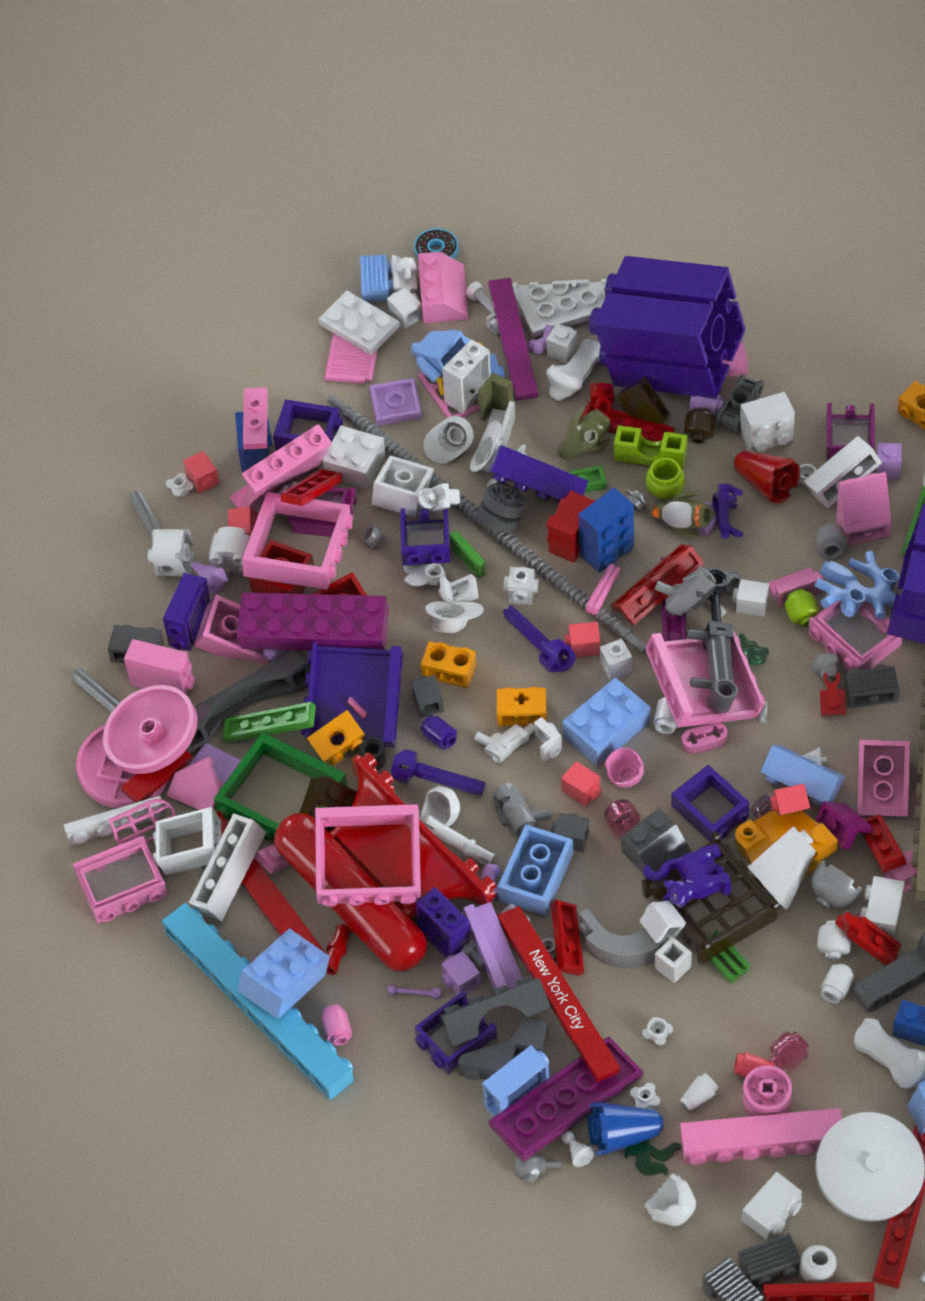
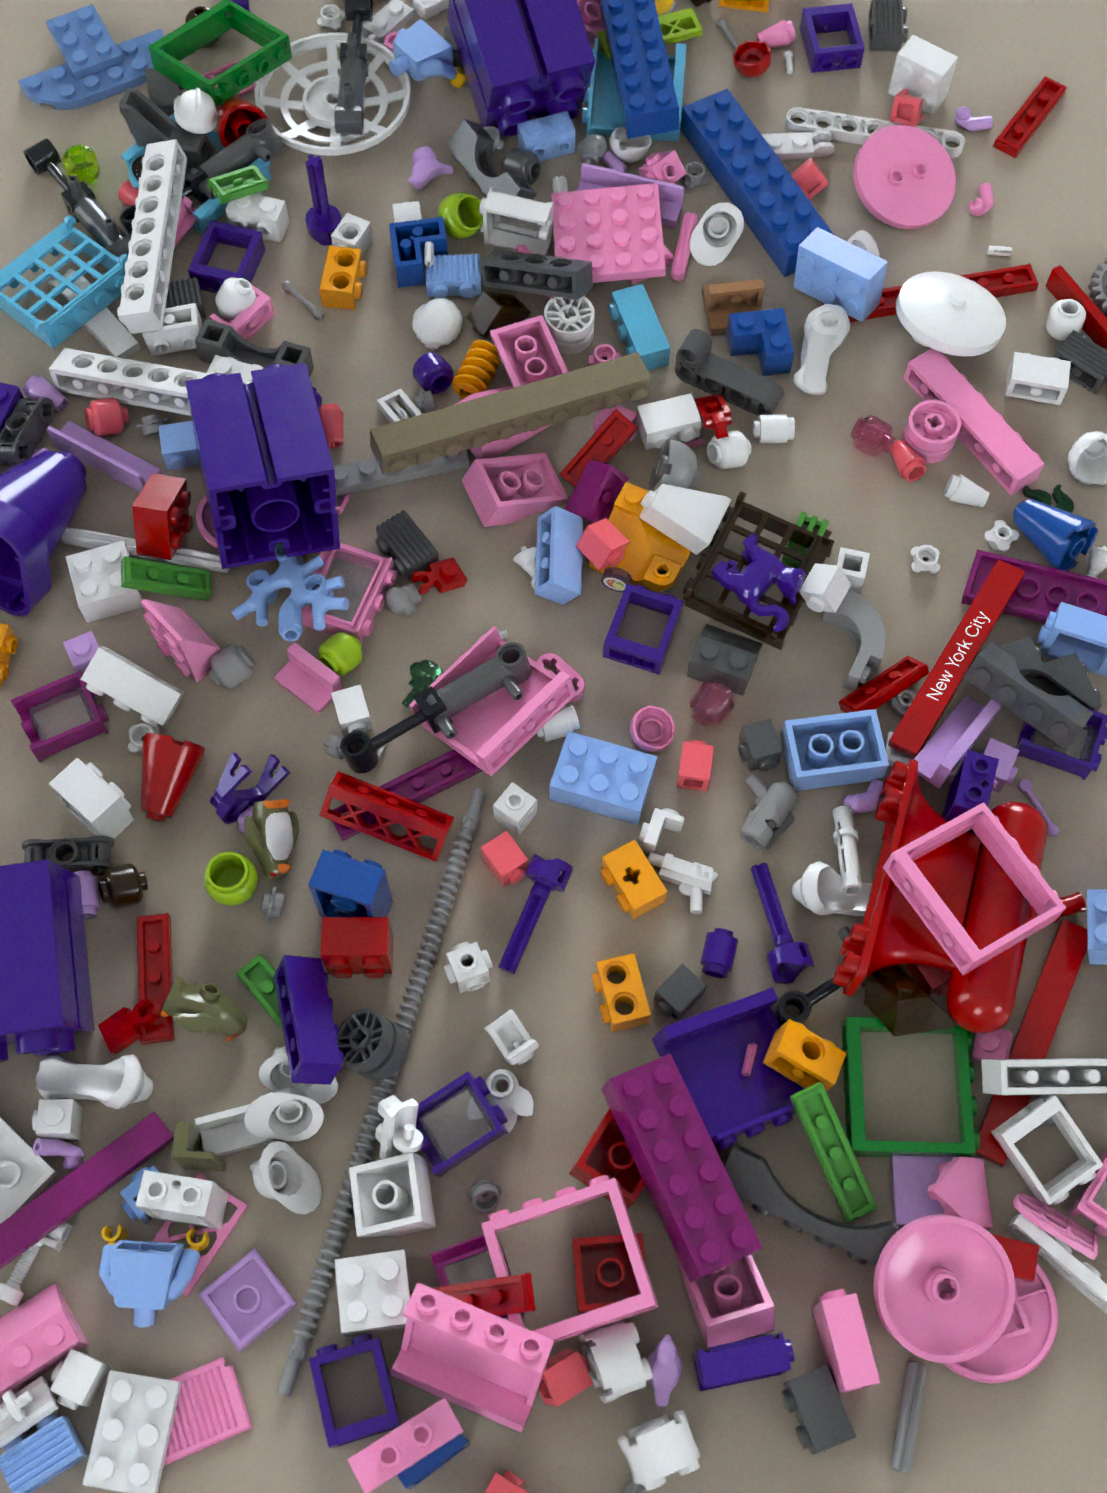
camera: 125 degrees left, 10 degrees up
(452, 616) = (551, 1019): white piece -> none
(467, 554) = (453, 1057): bright green tile -> none
(602, 589) = (428, 870): bright pink axle -> none
(635, 449) = (189, 918): lime arch -> none
(643, 402) = (117, 967): dark brown slope -> none
(690, 593) = (392, 762): light grey piece -> none

